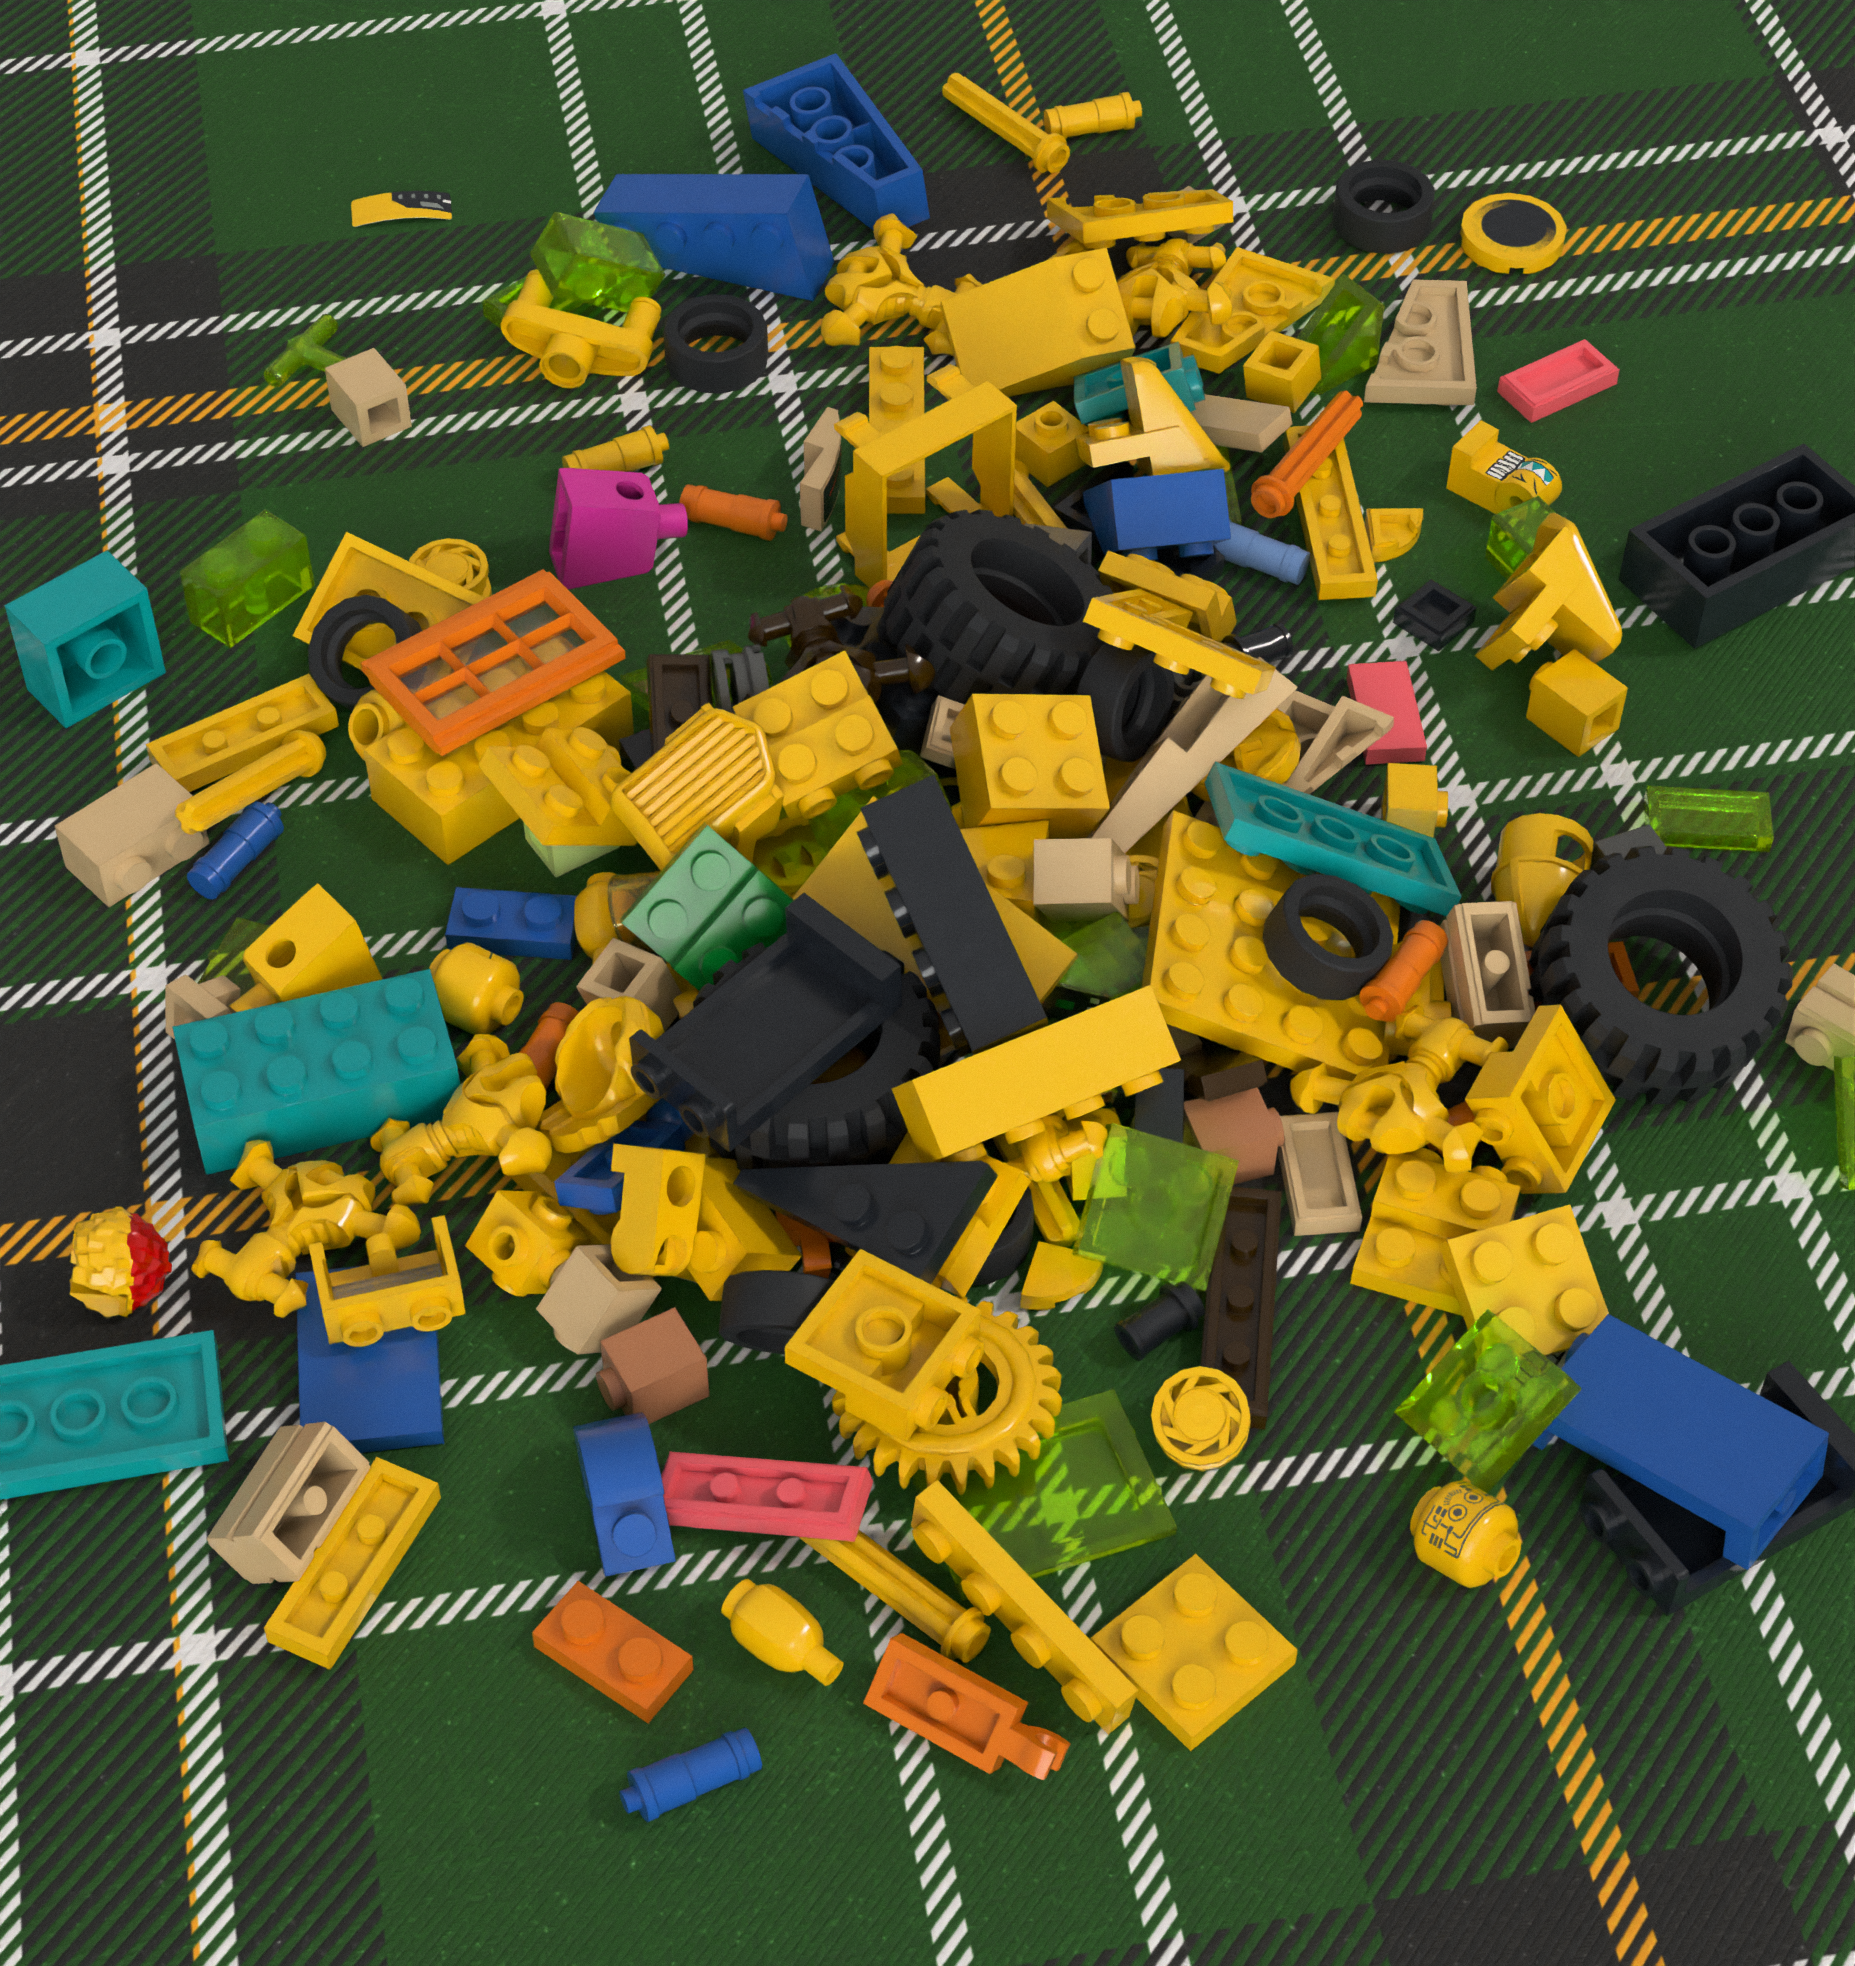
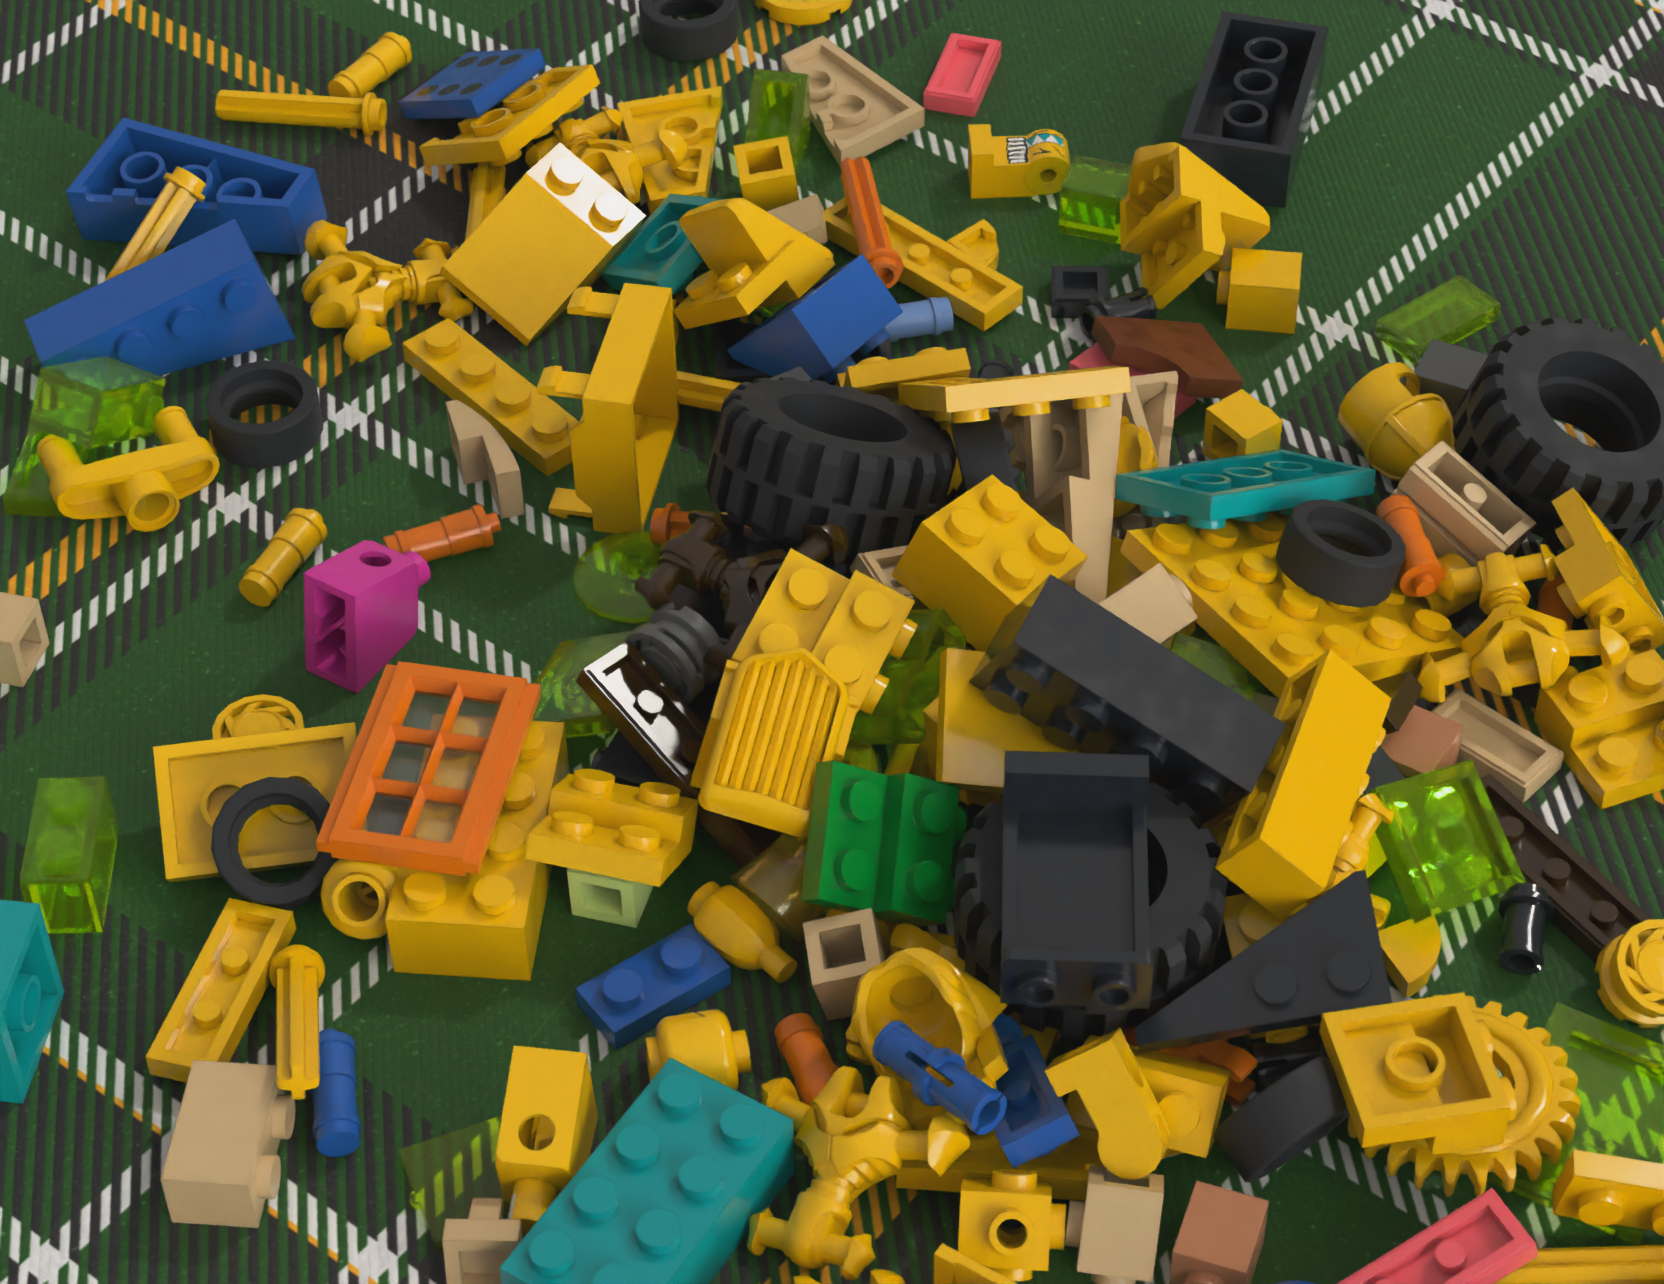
camera: 40 degrees left, 5 degrees down
(562, 1103) = (968, 1097): none -> blue pin
(782, 147) = (161, 220): none -> yellow axle
(1145, 170) = (473, 84): none -> blue tile
(1433, 705) = (1168, 347): none -> copper tile
(1435, 649) = (1125, 305): none -> black pin

